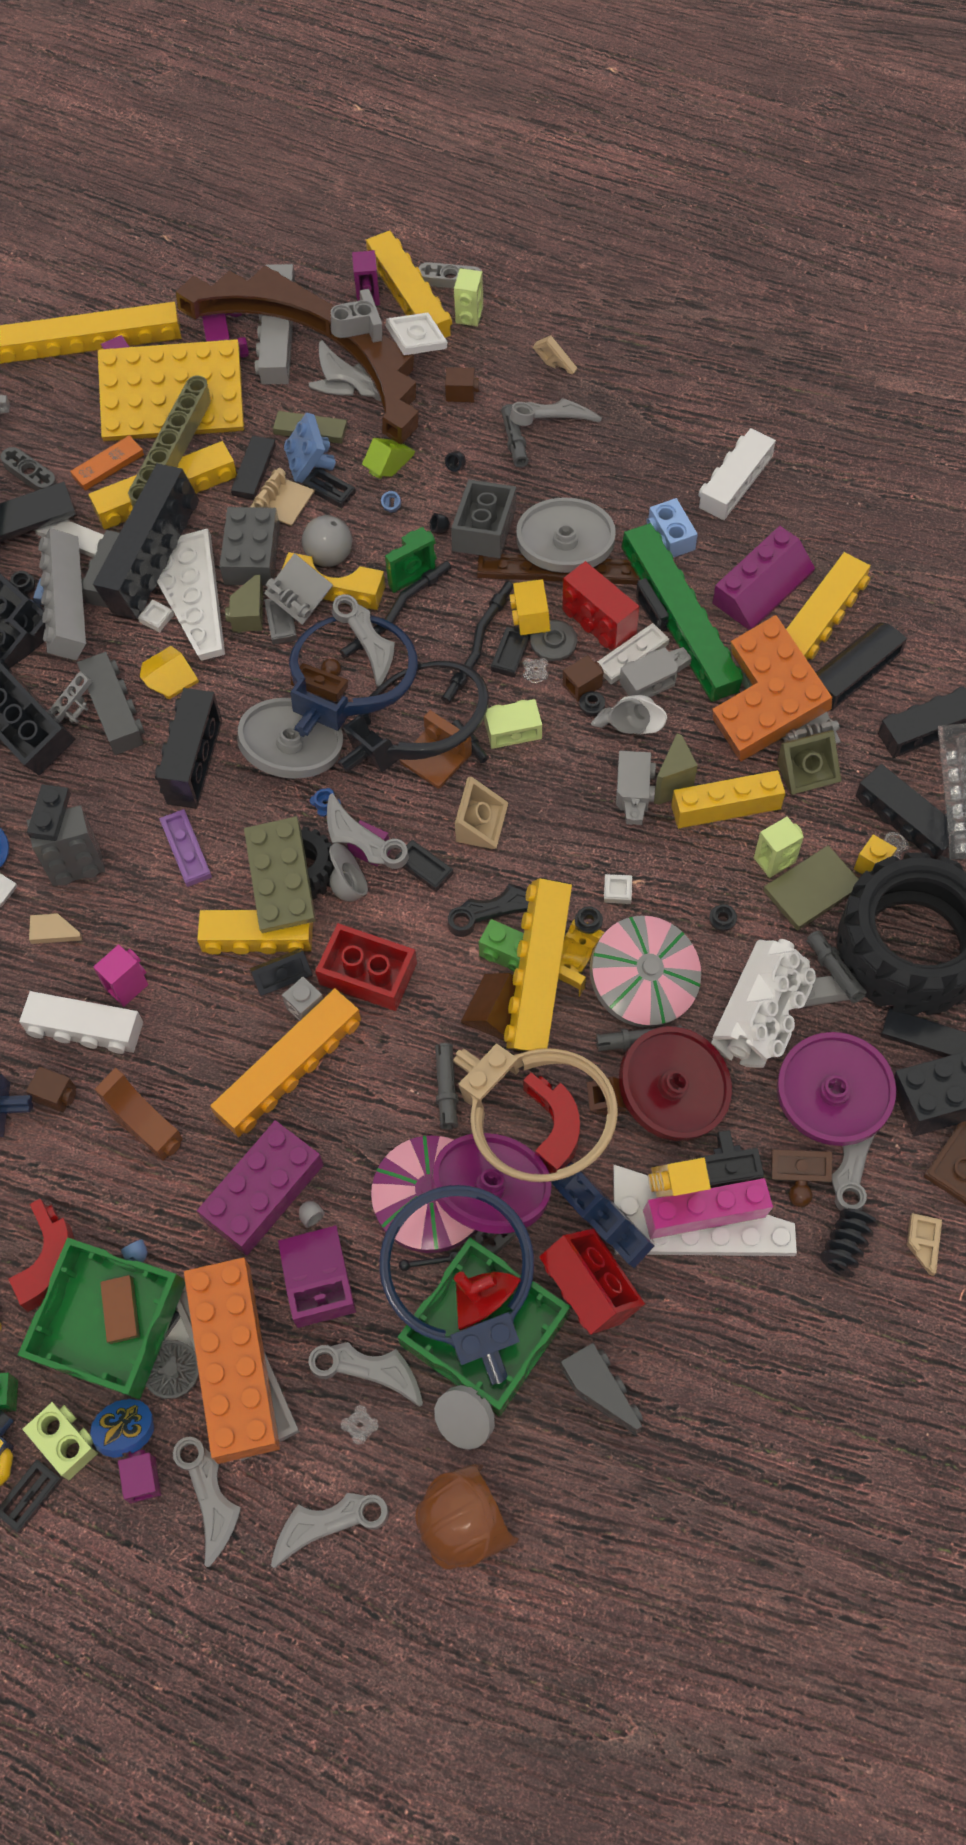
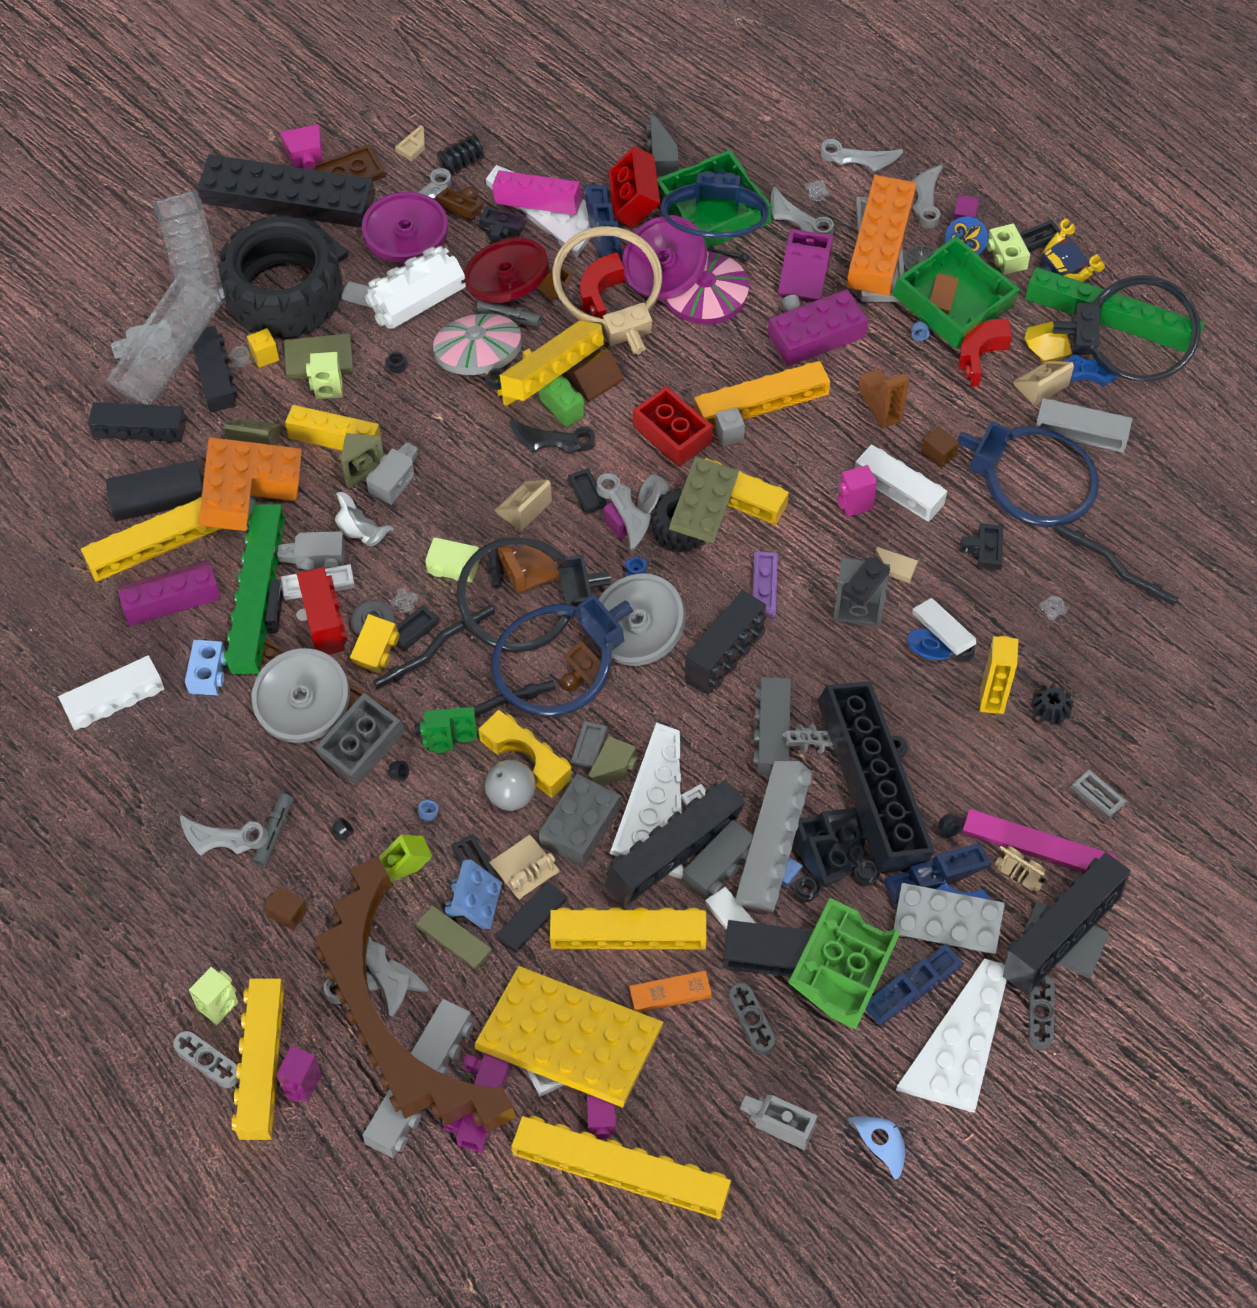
camera: 155 degrees left, 5 degrees down
(168, 673) = (712, 741): yellow slope -> none
(175, 433) = (601, 952): olive beam -> none
(281, 971) = (745, 457): black plate -> none
(298, 588) = (563, 743): light grey hinge -> none
(357, 318) = (351, 989): light grey tile -> none
(378, 649) = (524, 672): light grey piece -> none
(416, 333) = (297, 960): white tile -> none
(447, 1094) = (662, 332): dark grey pin -> none
(461, 1519) = (782, 113): dark orange piece -> none
(464, 1417) = (752, 161): light grey tile -> none
(481, 1295) = (705, 205): red shield -> none
(553, 354) = (177, 898): tan tile -> none
(583, 677) = (372, 572): reddish brown brick -> none
(591, 709) = (379, 558): black plate -> none
(618, 889) = (455, 414): white tile -> none
(679, 1178) = (548, 189): yellow brick -> none
(829, 957) = (346, 301): dark grey pin -> none

